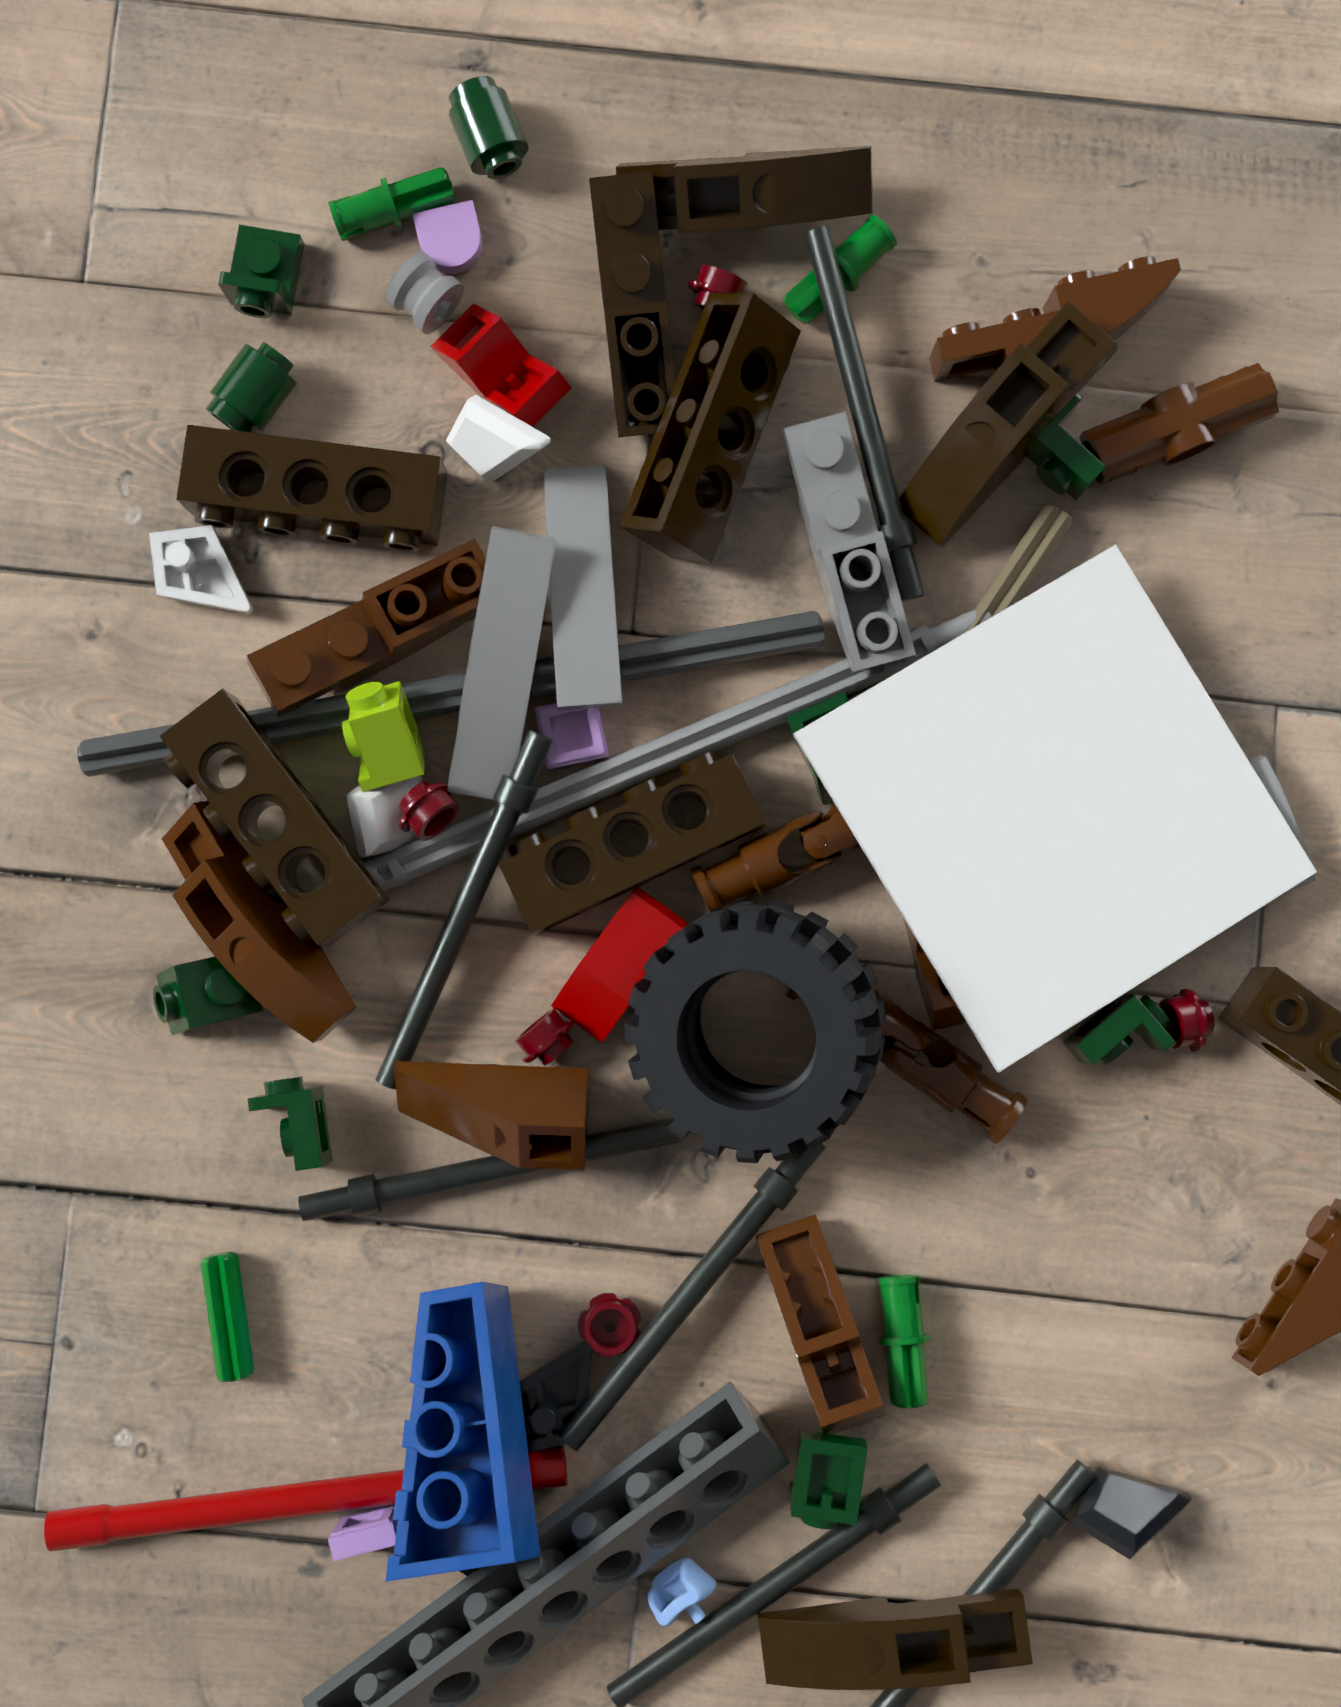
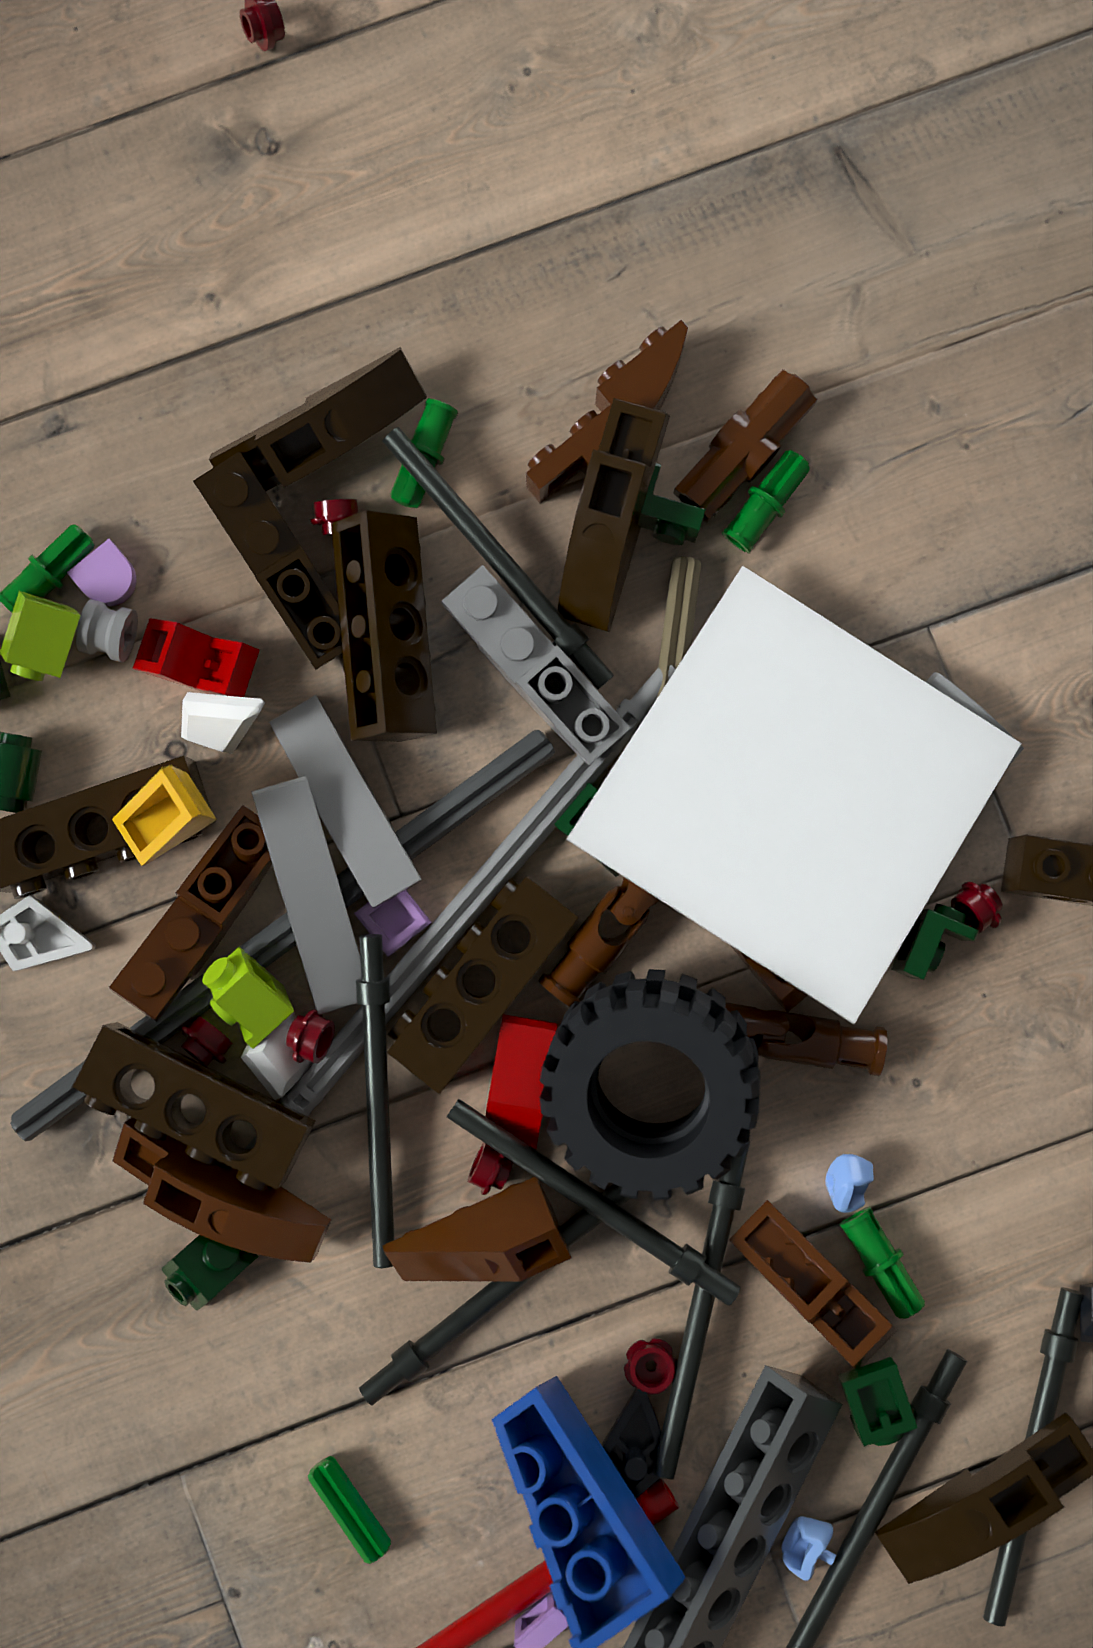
camera: 25 degrees left, 0 degrees up
(306, 1128) = (338, 1332): dark green bracket -> none
(316, 763) = (205, 1042): none -> dark red plate
(351, 264) = (39, 637): none -> lime brick
(389, 504) = (163, 814): none -> yellow slope
(487, 127) = (92, 476): dark green brick -> none
(698, 1234) = (684, 1262): none -> pearl dark grey bar
(909, 1237) = (848, 1181): none -> light blue piece
(1173, 492) = (767, 501): none -> green axle

